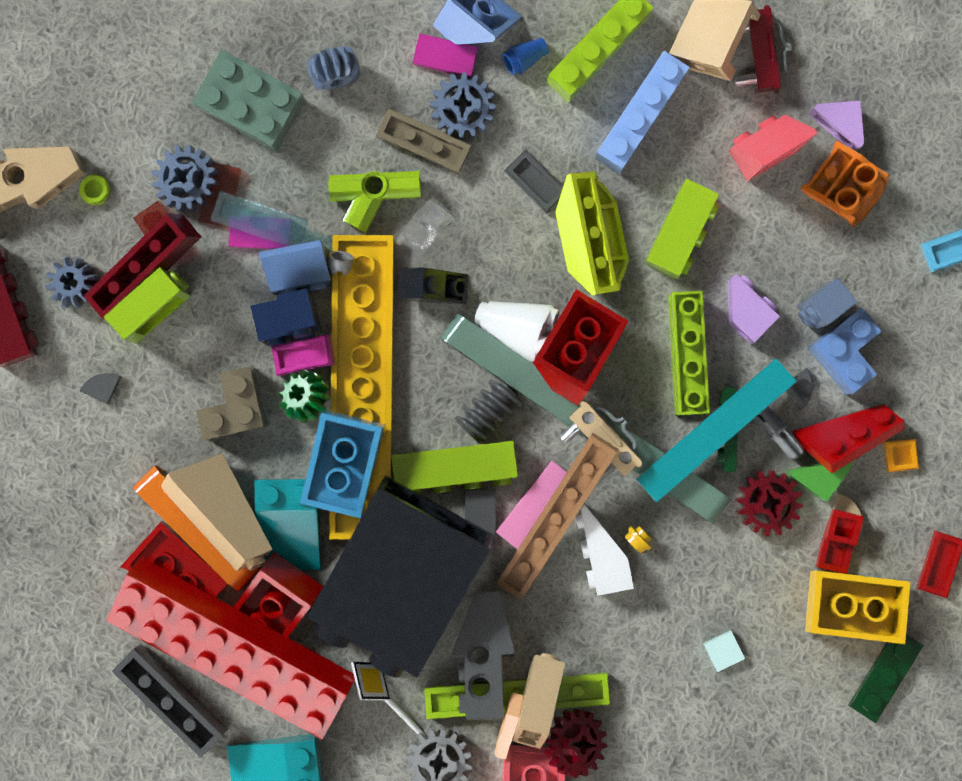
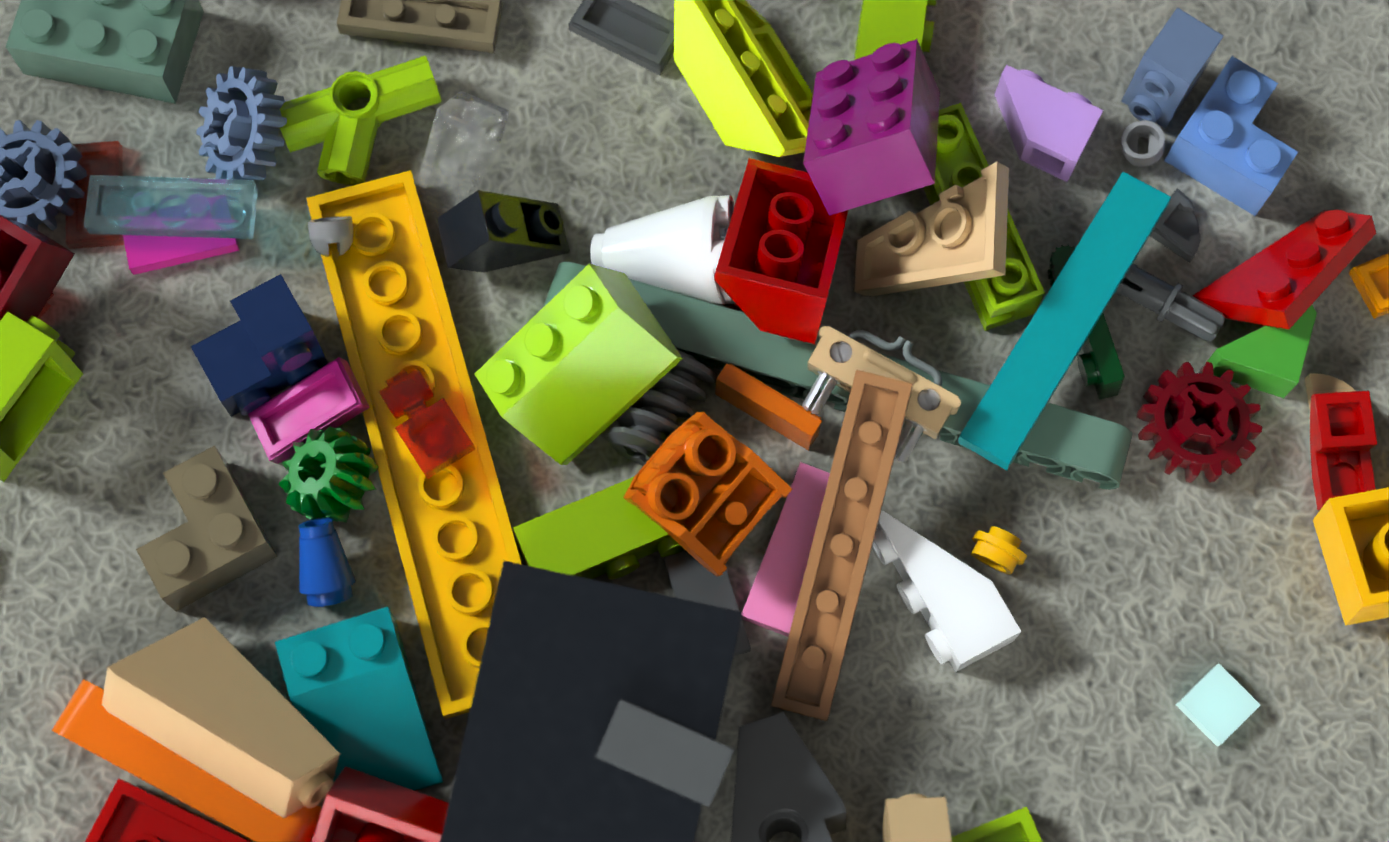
camera: 20 degrees left, 15 degrees down
(289, 444) = (323, 565): none -> blue cone
(297, 268) = (253, 248): medium blue slope -> none
(308, 185) = (241, 125): none -> sand blue gear
(342, 463) = (427, 558): dark azure slope -> none
(362, 393) = (430, 432): none -> clear red plate
(430, 606) = (665, 753): none -> dark grey tile
(450, 379) = (578, 363): none -> lime slope
(493, 469) = (706, 490): none -> orange slope
(544, 426) = (768, 406): none -> orange tile
(646, 297) = (873, 127): none -> magenta brick
(664, 369) = (941, 245): none -> tan wing
(791, 334) = (1130, 143): none -> light grey hinge

